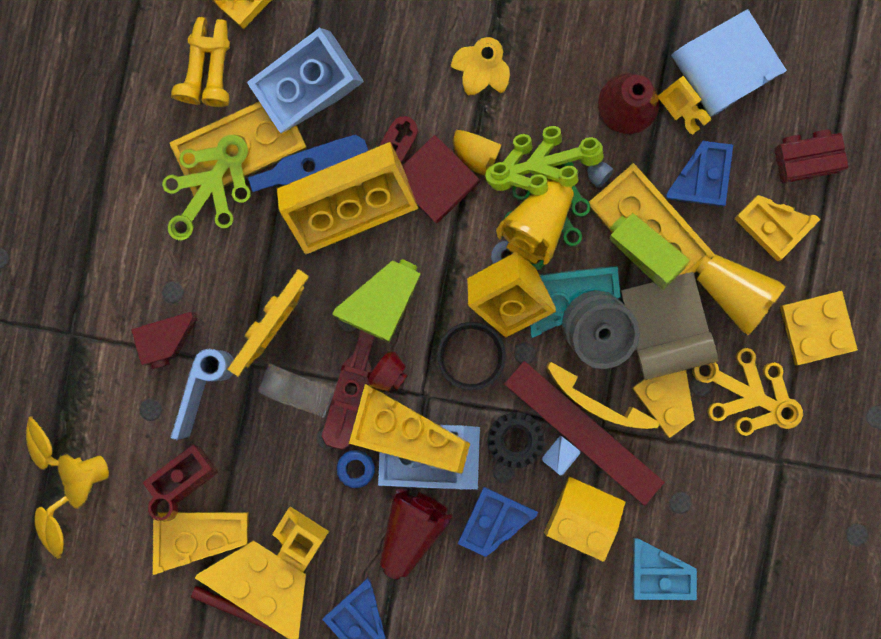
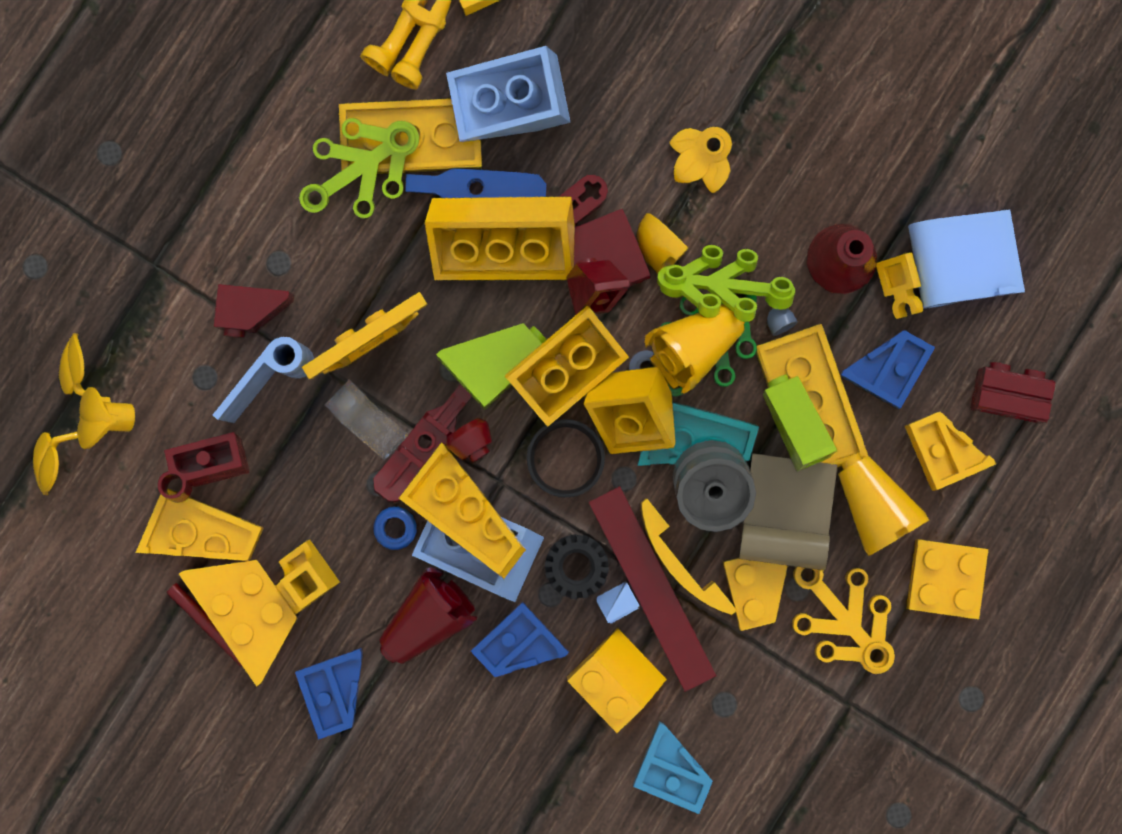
camera: 25 degrees right, 0 degrees up
(439, 206) = (596, 285): none -> dark red slope
(442, 280) = (567, 366): none -> yellow slope

